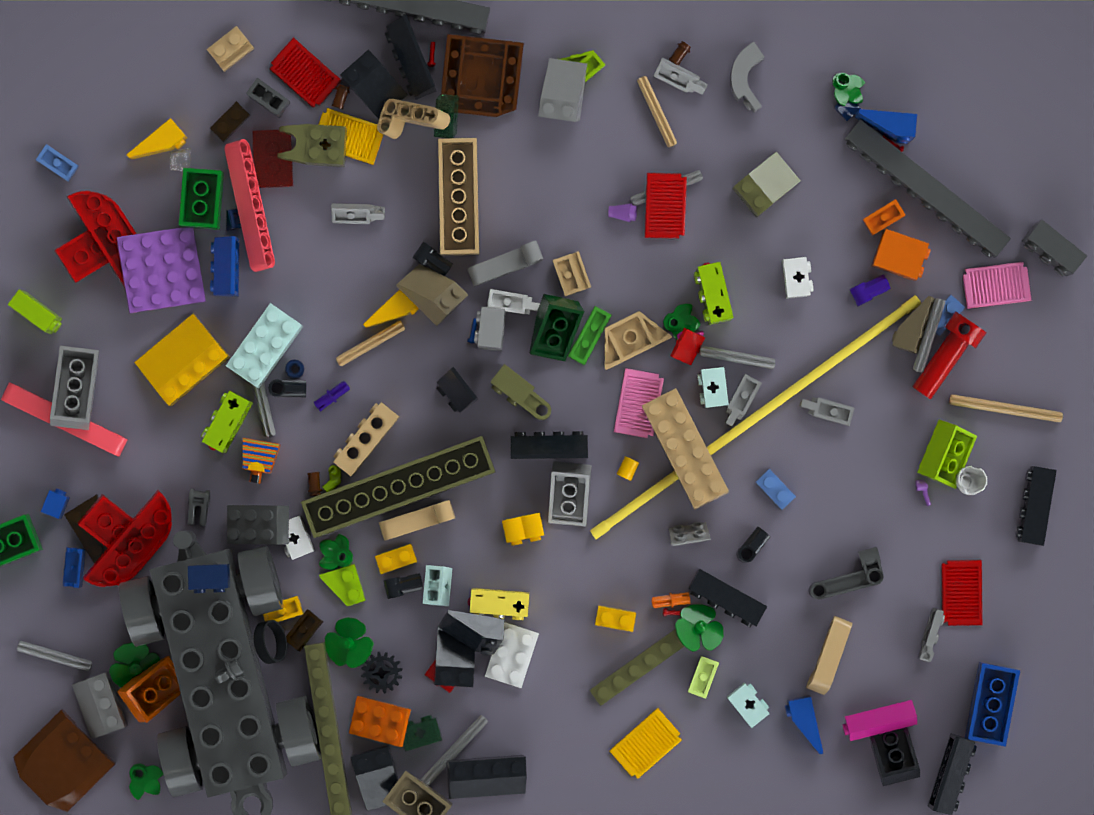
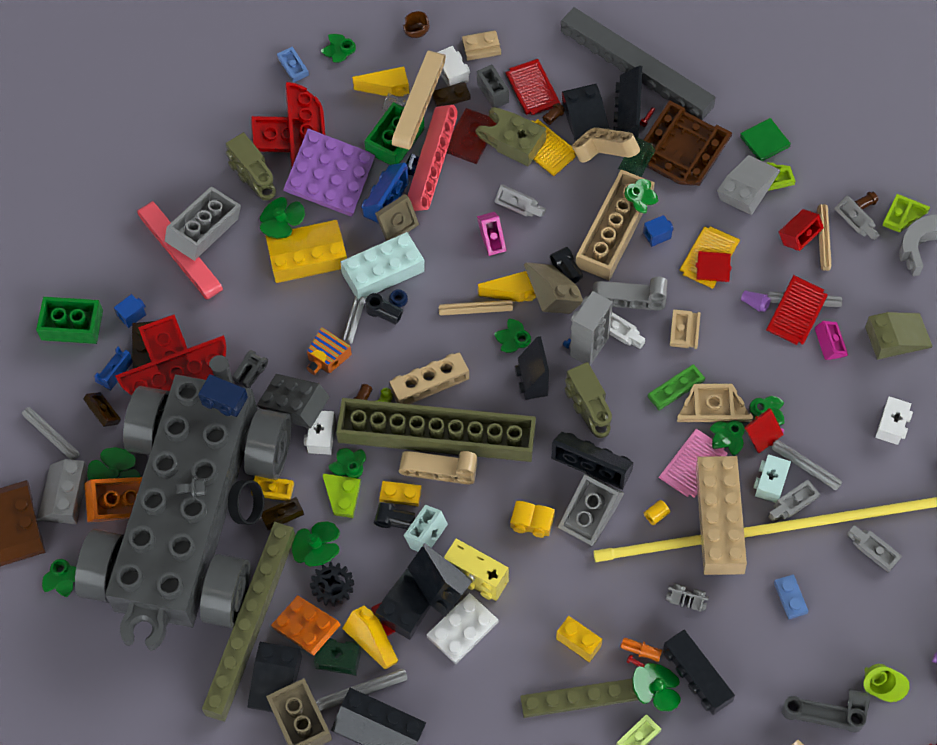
camera: 30 degrees right, 25 degrees down
(35, 312) = (207, 156): lime brick -> none
(83, 302) = (250, 165): none -> olive brick
(87, 611) = (102, 409): none -> dark brown plate
(88, 122) = (338, 48): none -> green plate
(141, 346) = (276, 218): none -> green piece
(155, 59) = (416, 24): none -> reddish brown hair
(208, 156) = (418, 100): none -> tan beam
(215, 92) = (454, 69): none -> white brick
(226, 422) = (315, 308): lime piece -> none
(252, 291) = (397, 218): none -> dark tan plate
(331, 395) = (419, 332): dark purple axle -> none
(347, 259) = (491, 233): none -> dark pink slope
(416, 357) = (510, 337): none -> green plate
(440, 703) = (370, 635): none -> yellow slope
(473, 158) = (641, 195): none -> green plate
(501, 181) = (658, 230): none -> blue brick
(555, 327) = (648, 363): dark green slope -> none
(556, 27) = (765, 139): none -> green tile
(559, 182) = (708, 241): none -> yellow window
(568, 194) = (713, 266): none -> red piece
(633, 118) = (801, 229): none -> red brick
(657, 366) = (725, 437): none -> green plate
(707, 219) = (830, 340): none -> dark pink slope
(713, 292) = (809, 396): lime piece -> none
(719, 50) = (904, 213): none -> lime wing
(754, 544) = (747, 635): black piece -> none
(884, 532) = (885, 683): none -> lime piece

